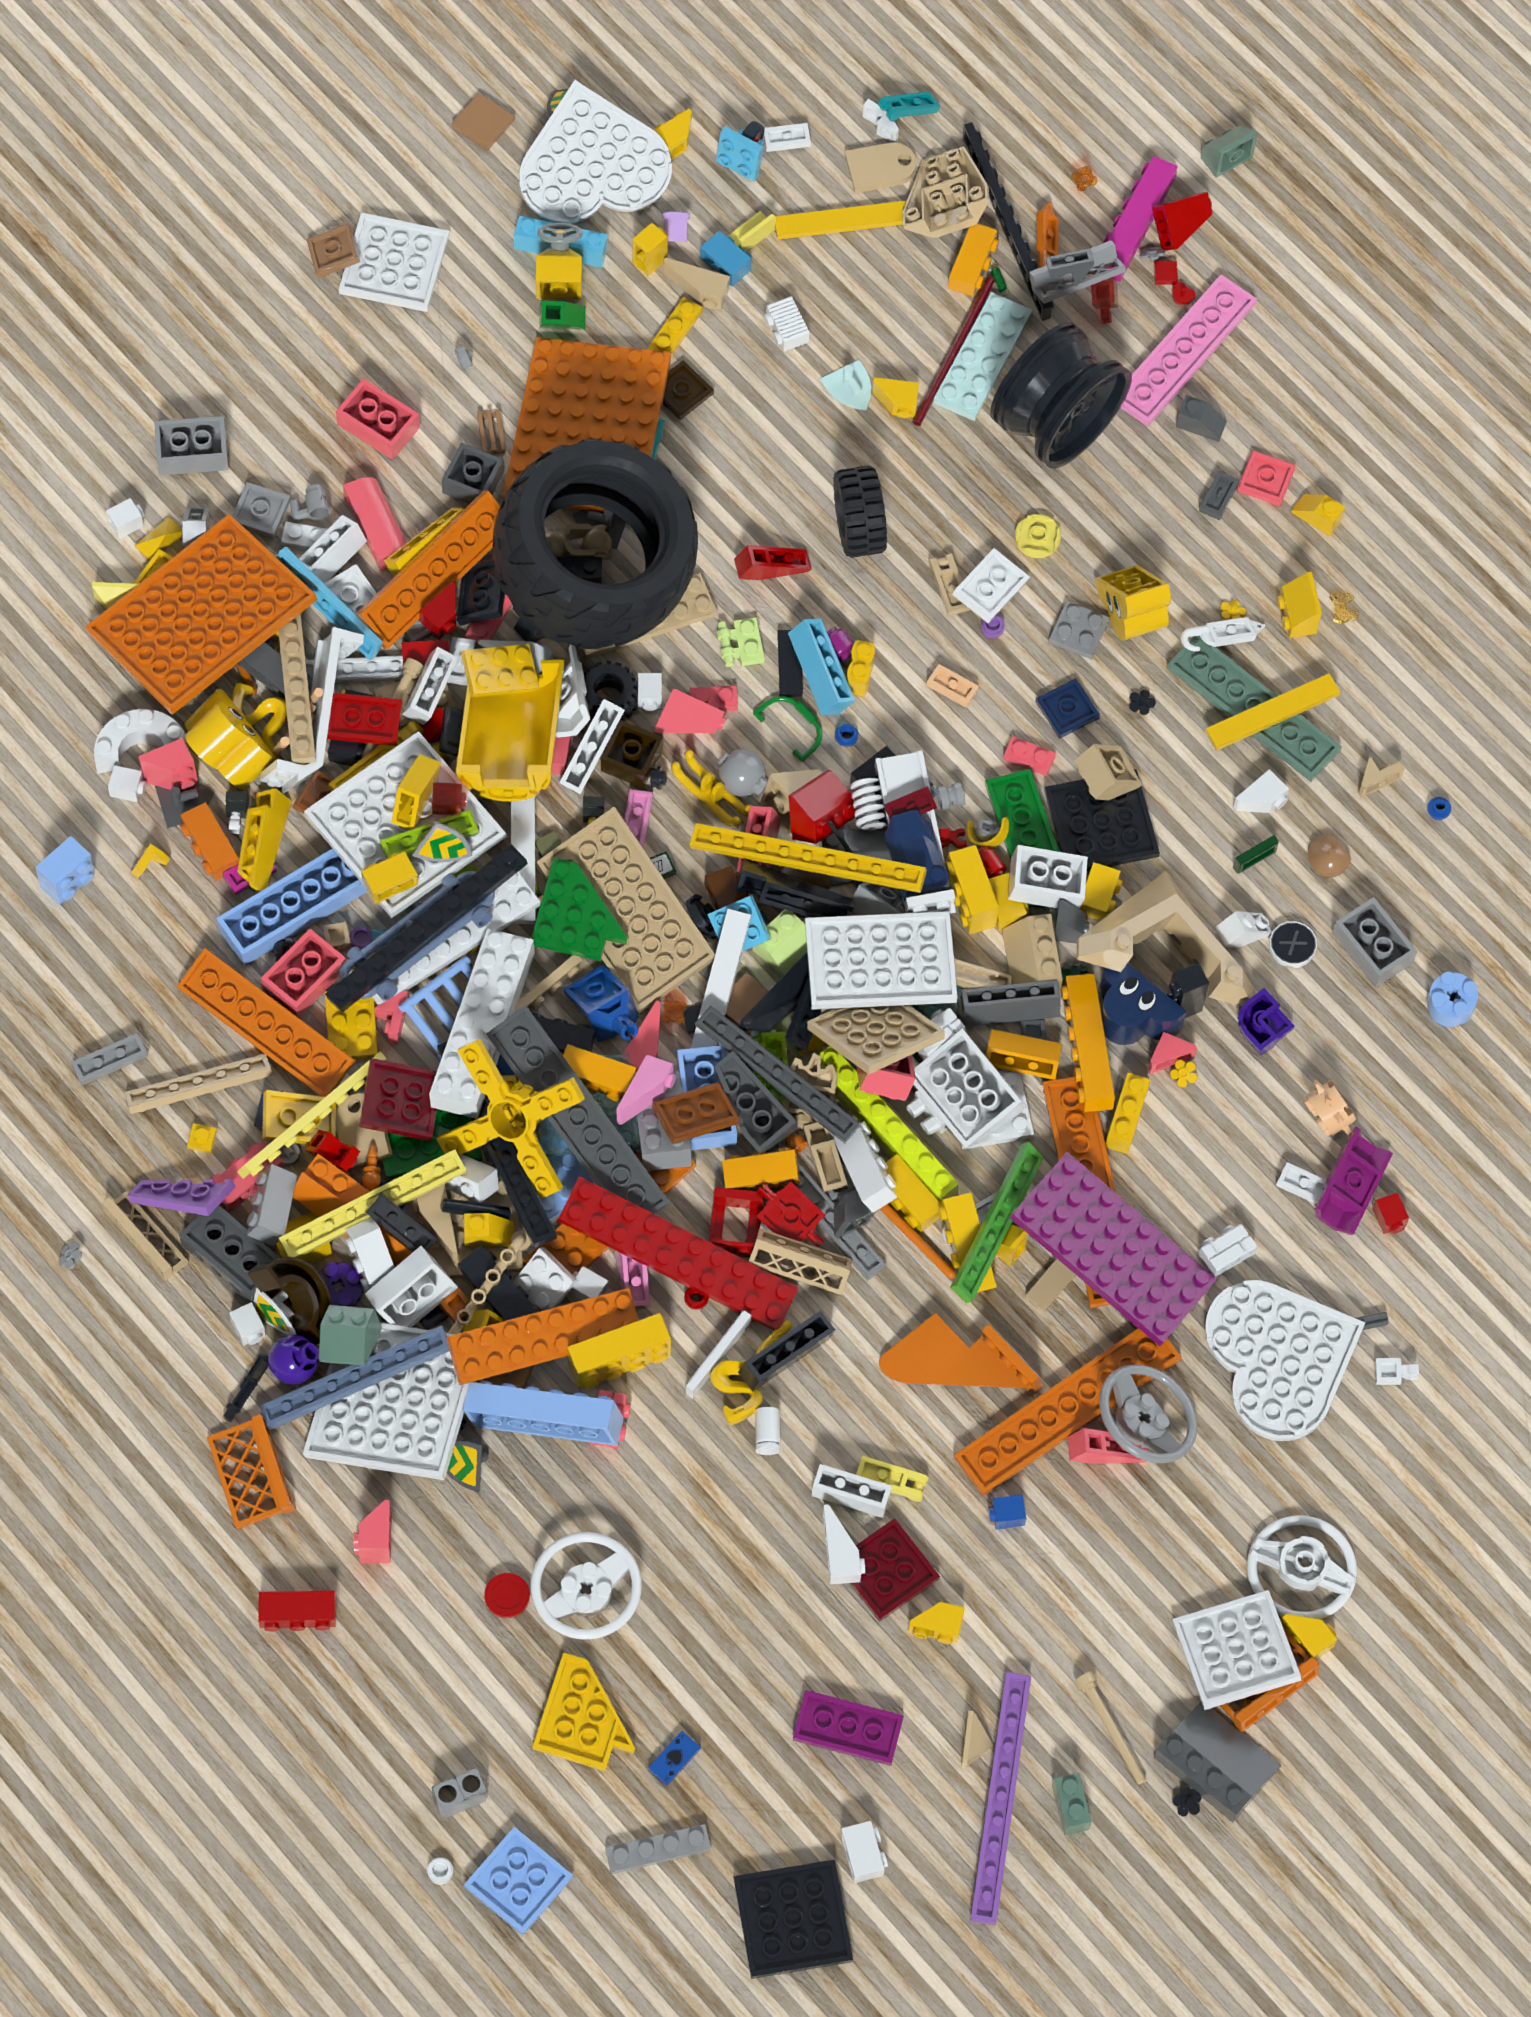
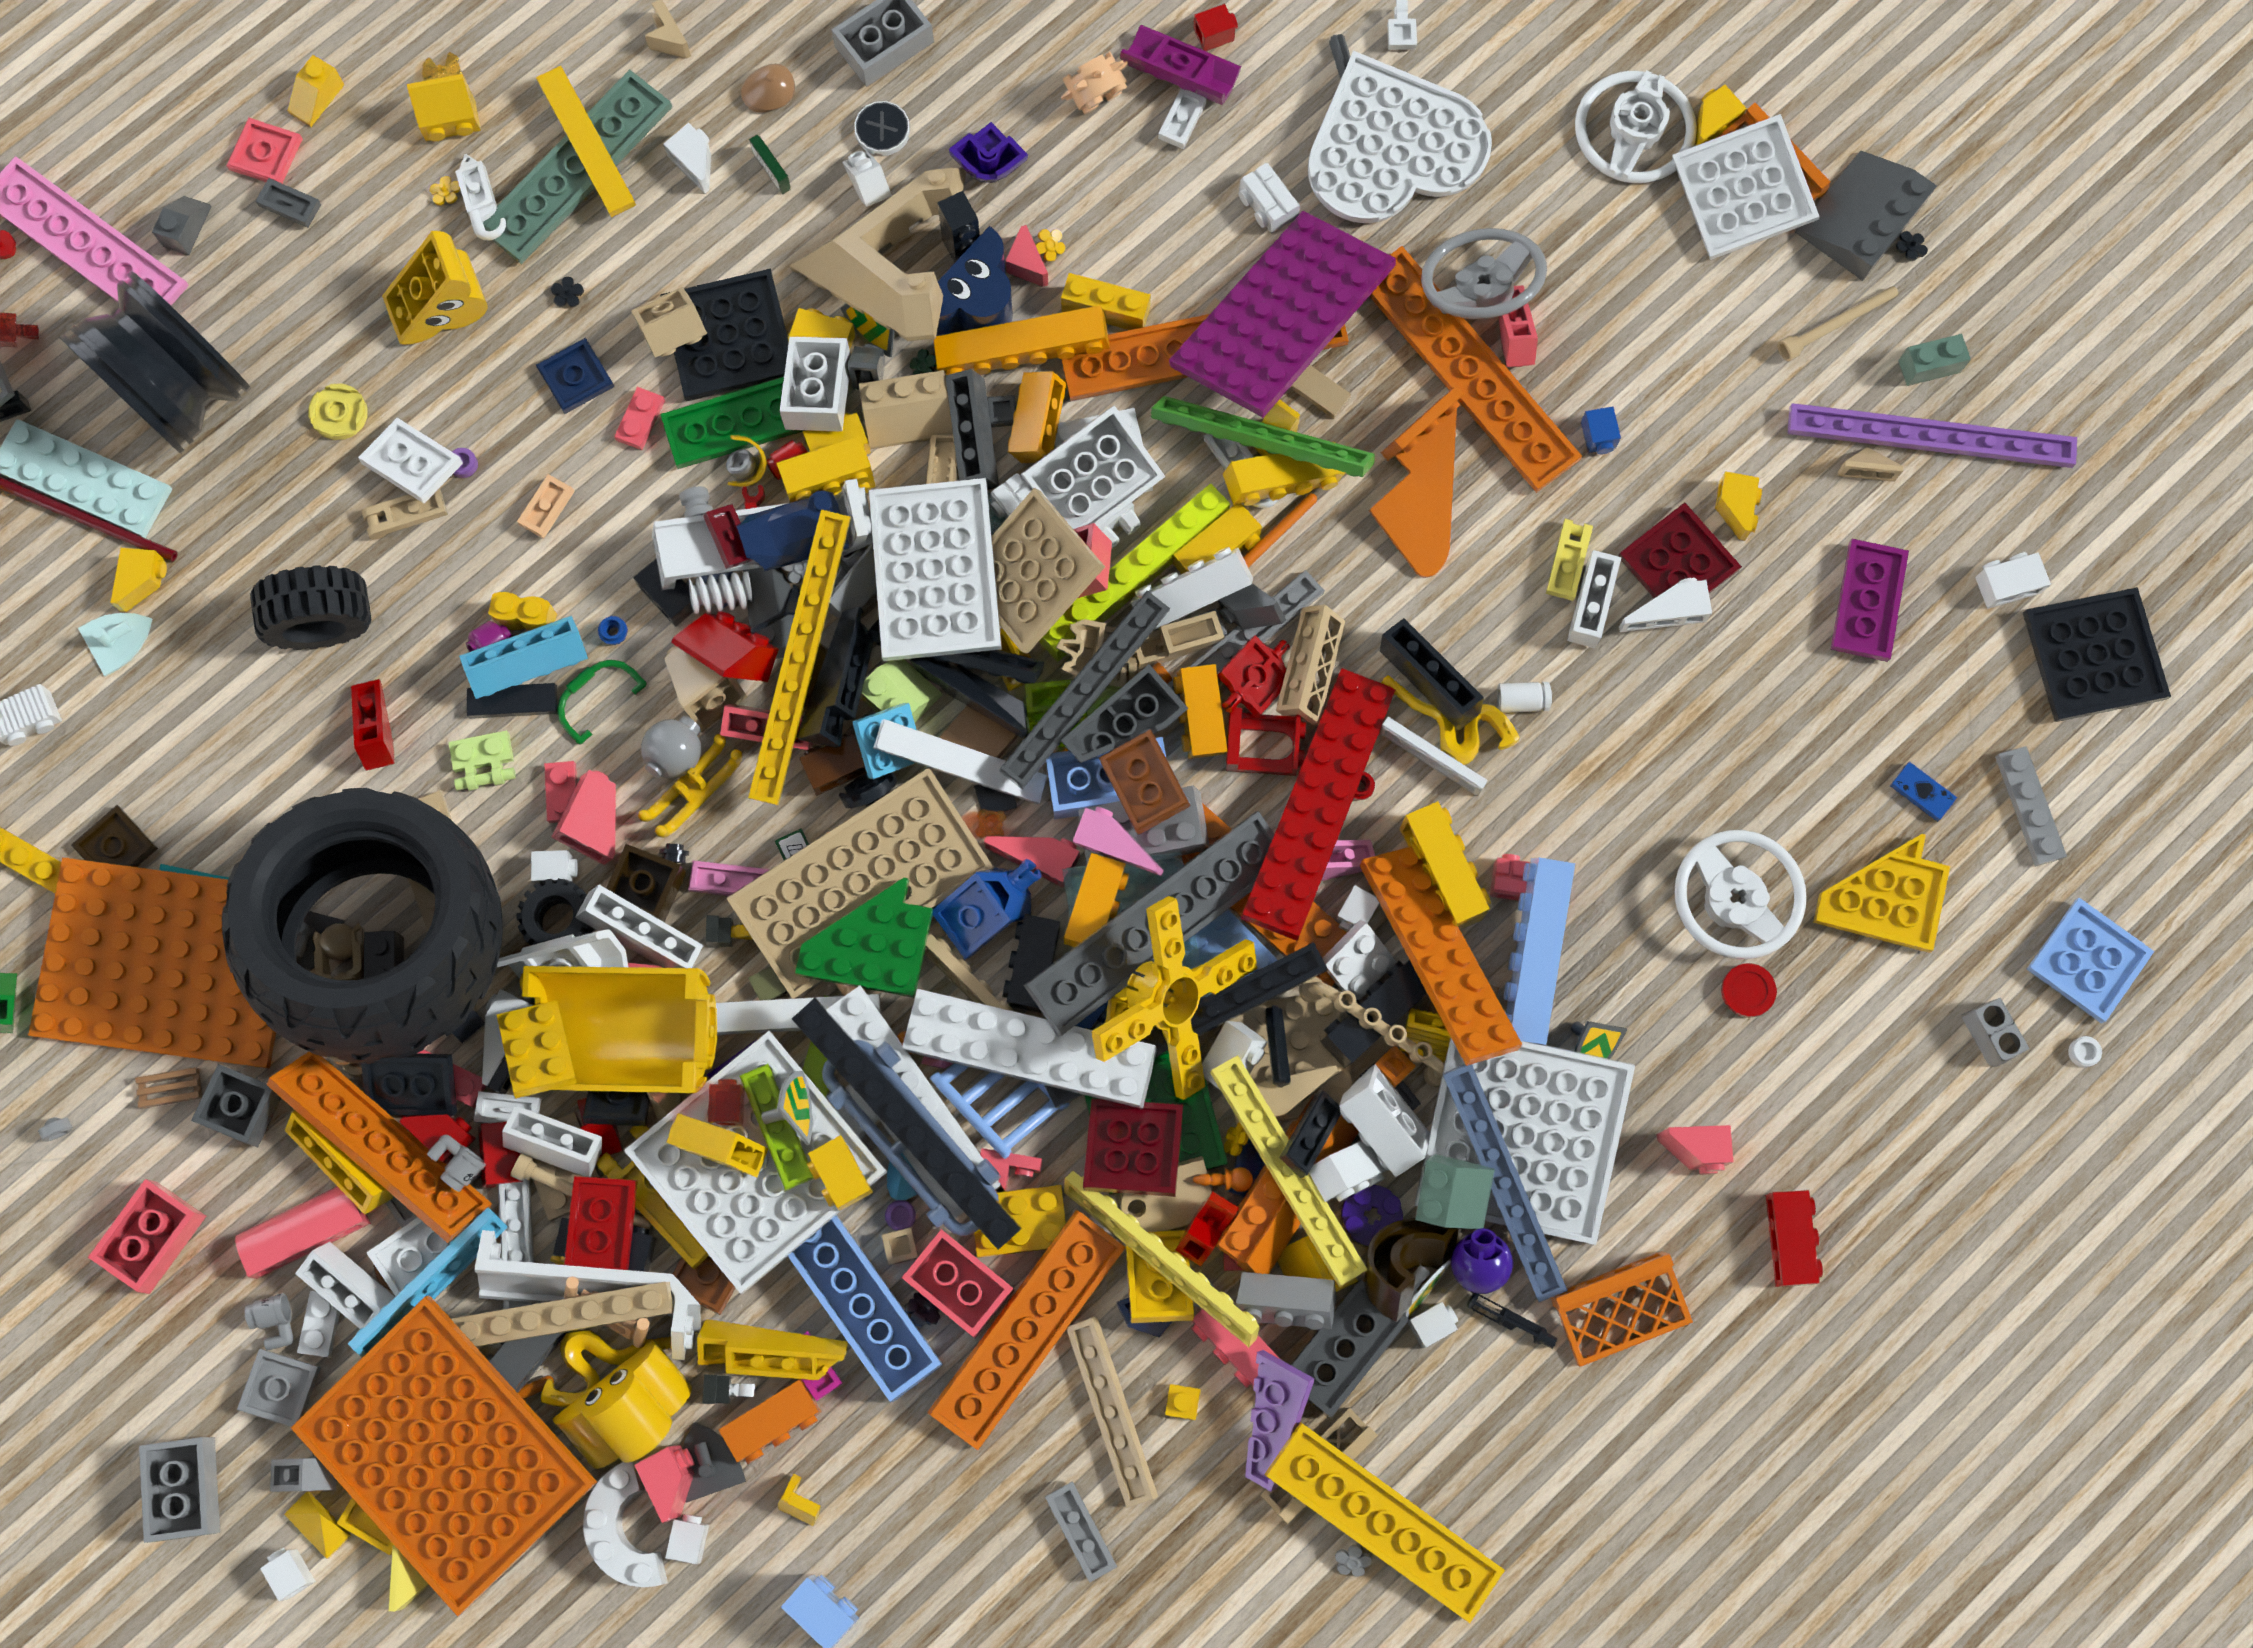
camera: 90 degrees left, 10 degrees up
(96, 1273) = (1384, 1522): none -> yellow plate
(414, 624) = (462, 1166): none -> light grey piece
(487, 1230) = (1300, 1031): yellow slope -> none
(1079, 630) = (469, 363): light grey plate -> none

